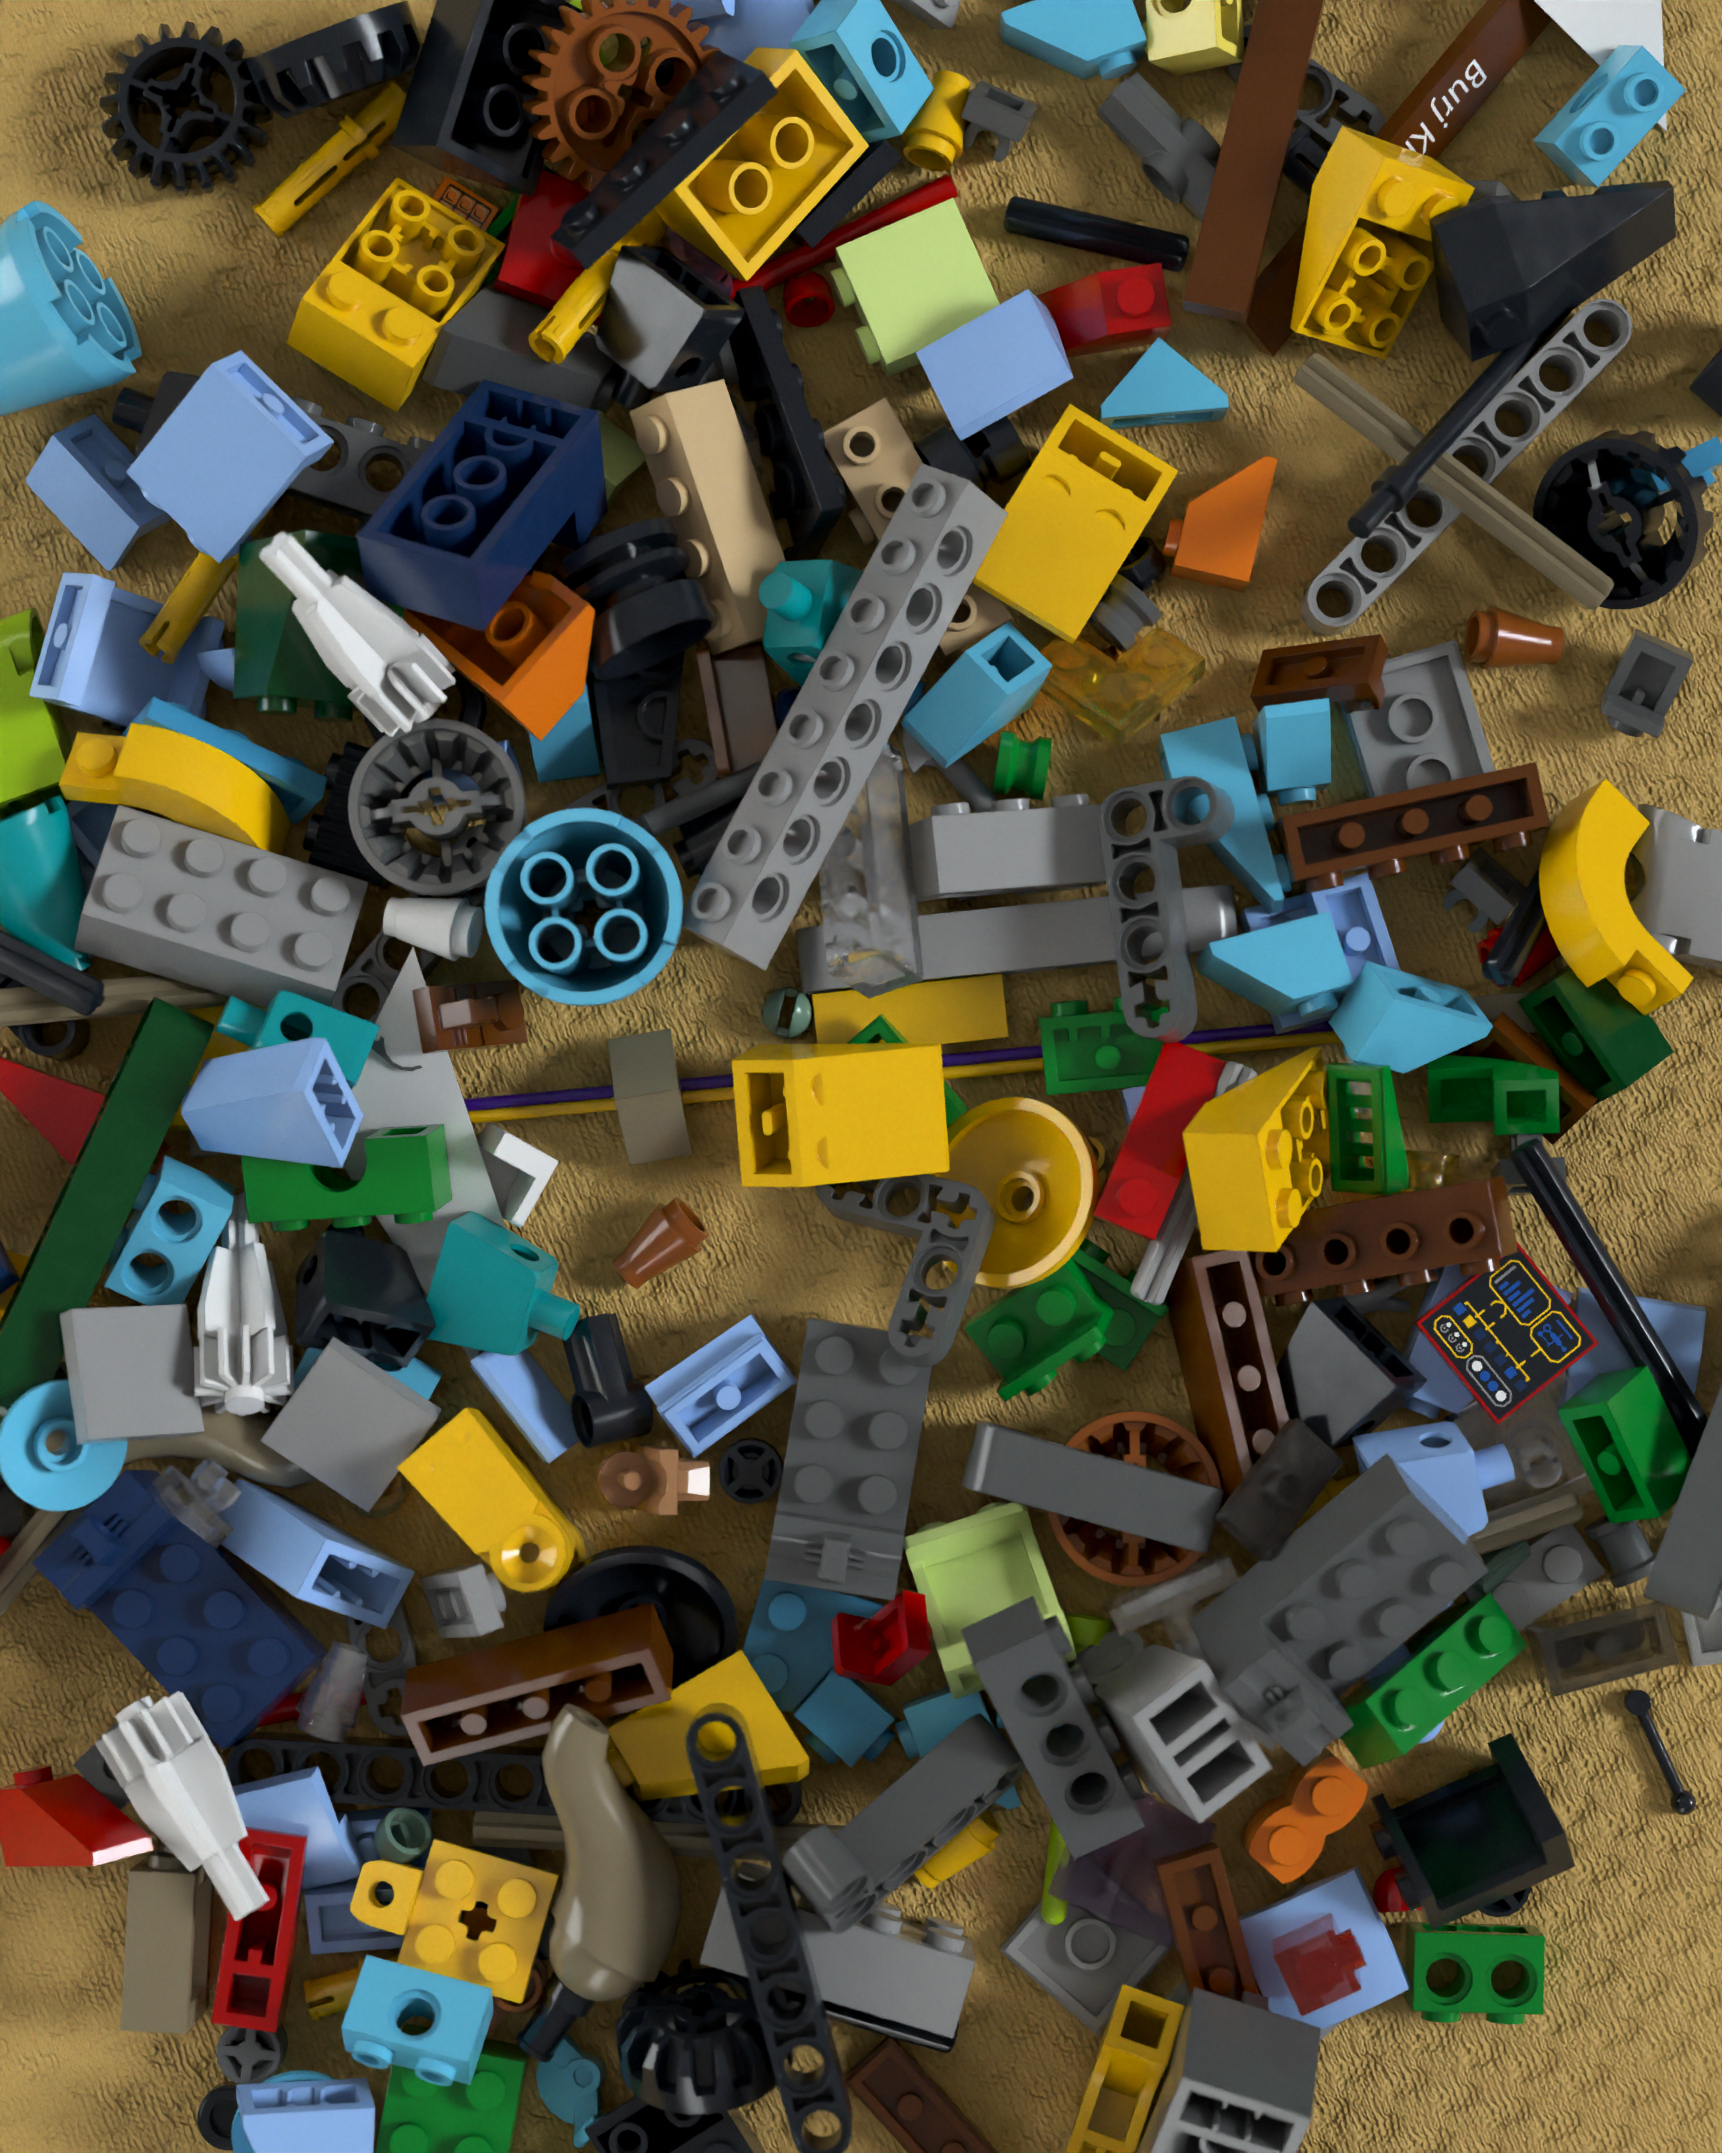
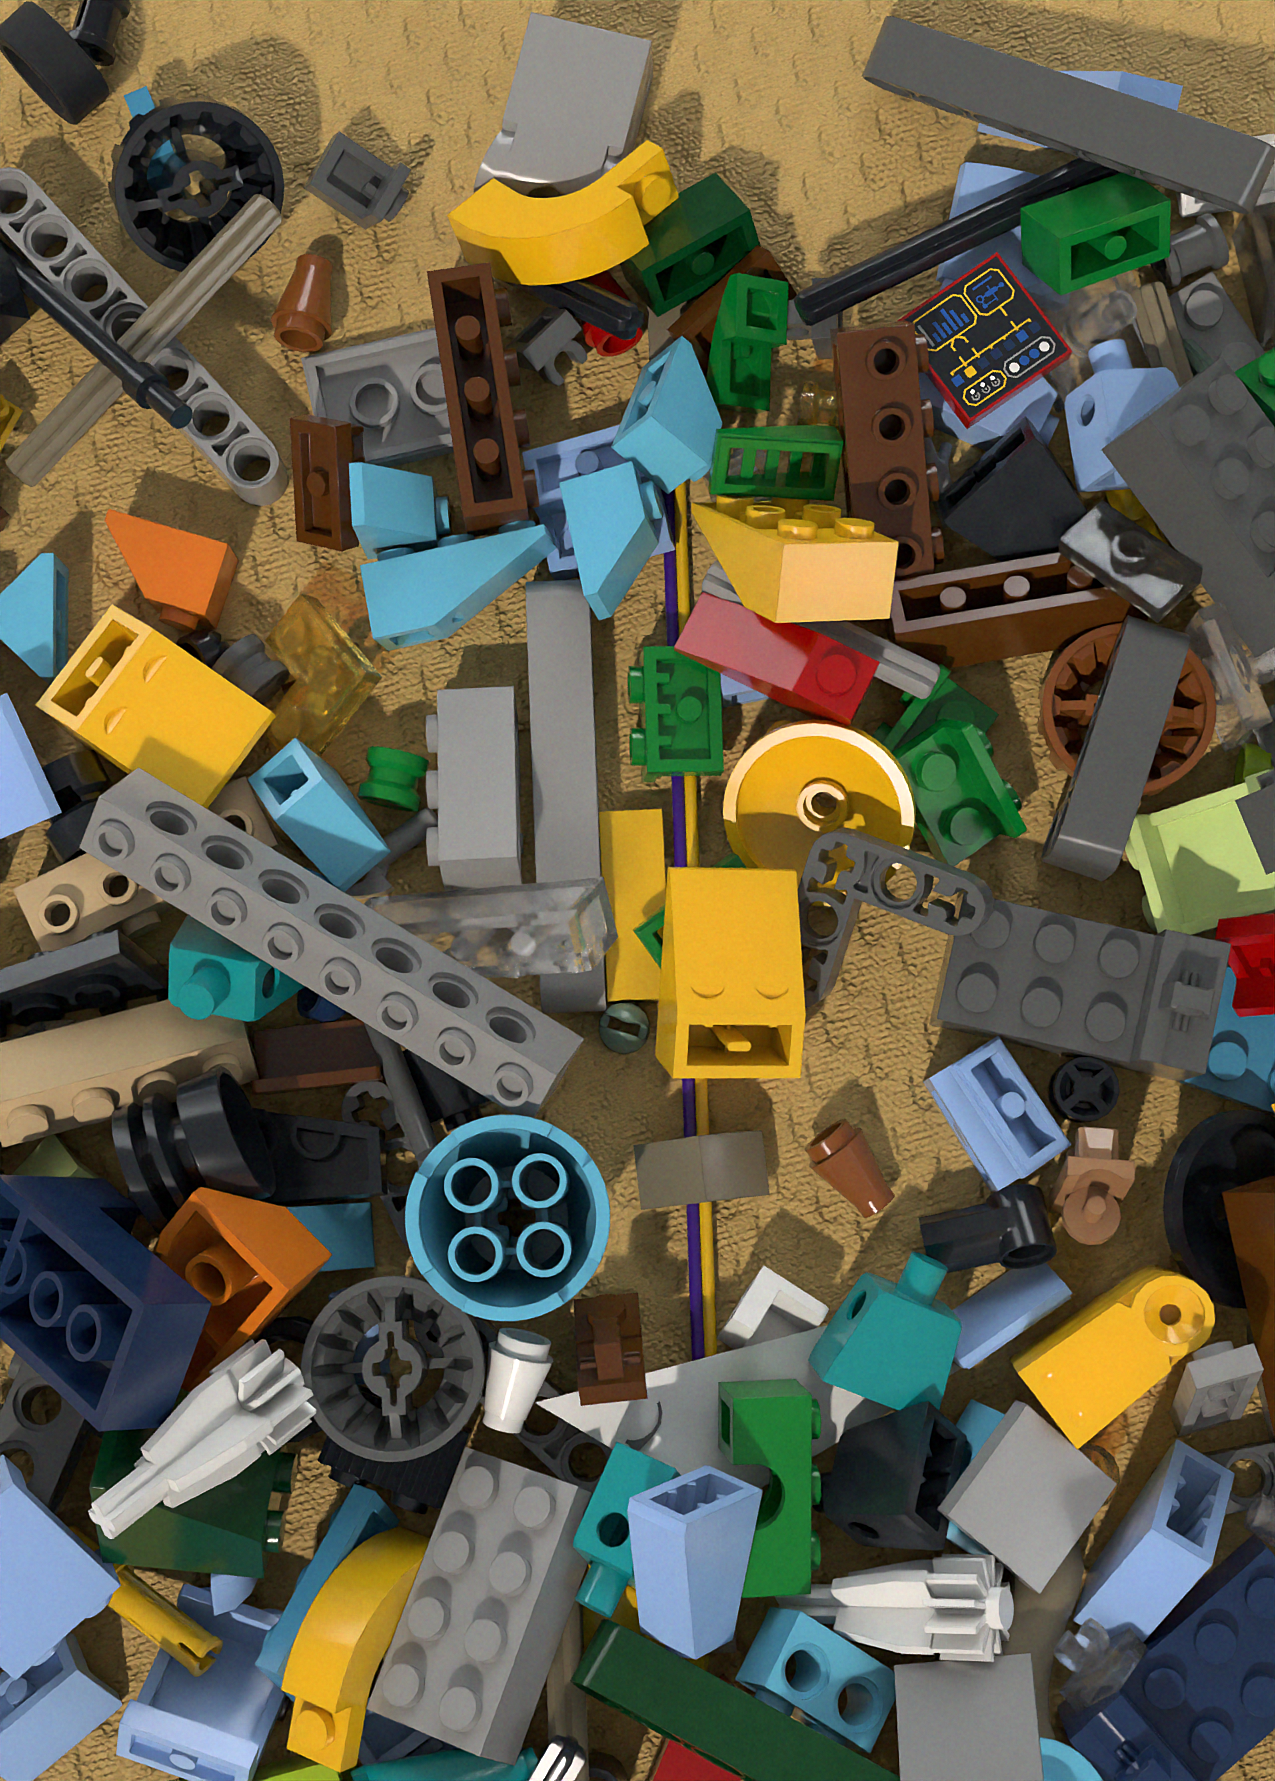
camera: 80 degrees left, 5 degrees down
(1162, 909) = (548, 641): dark grey beam -> none

